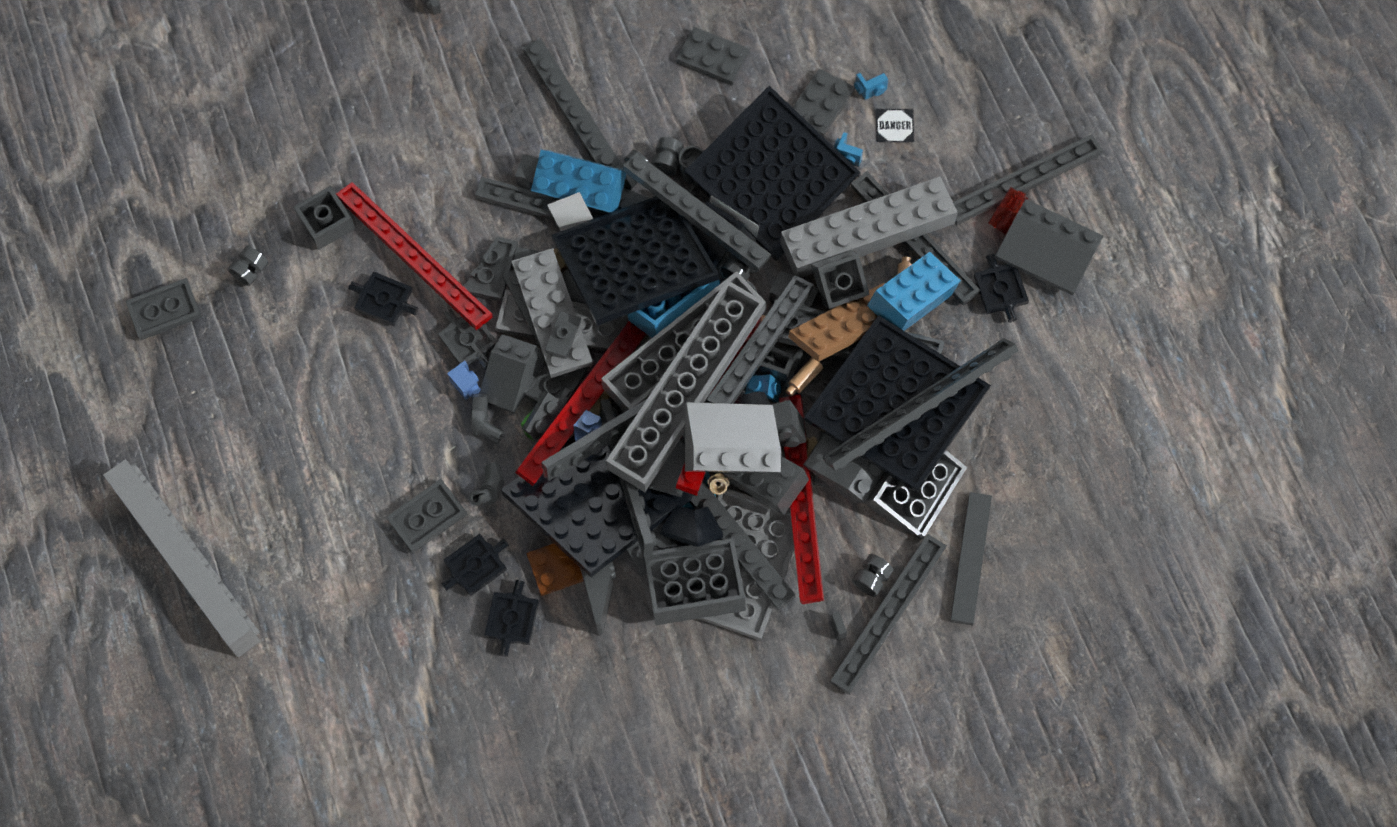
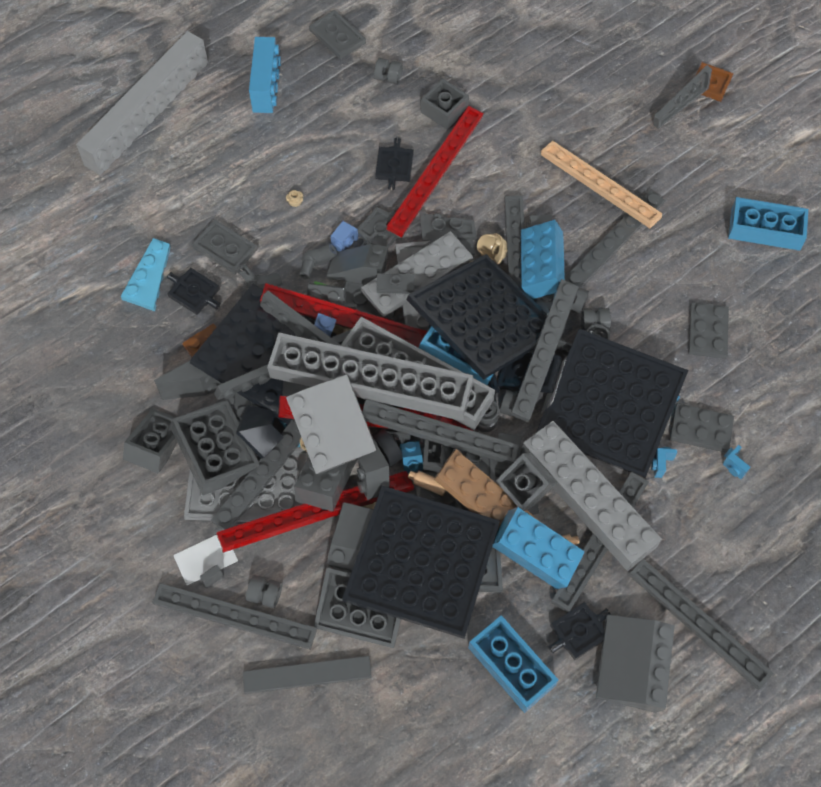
camera: 70 degrees right, 5 degrees down
(198, 405) = (264, 75): none -> dark azure brick
(390, 425) = (294, 201): none -> tan plate
(436, 615) = (147, 278): none -> medium azure wing
(498, 92) = (601, 184): none -> light nougat plate
(511, 618) = (156, 329): black plate -> none
(540, 227) = (493, 246): none -> tan piece
(570, 211) = (513, 262): white sticker -> none
(657, 650) = (151, 442): none -> dark grey slope
(811, 631) = (201, 558): none -> white sticker
(895, 125) = (708, 496): sticker -> none
(919, 404) = (424, 578): dark grey plate -> none
(1007, 210) = (660, 613): clear red hinge -> none
(1038, 353) = (513, 663): none -> dark azure brick

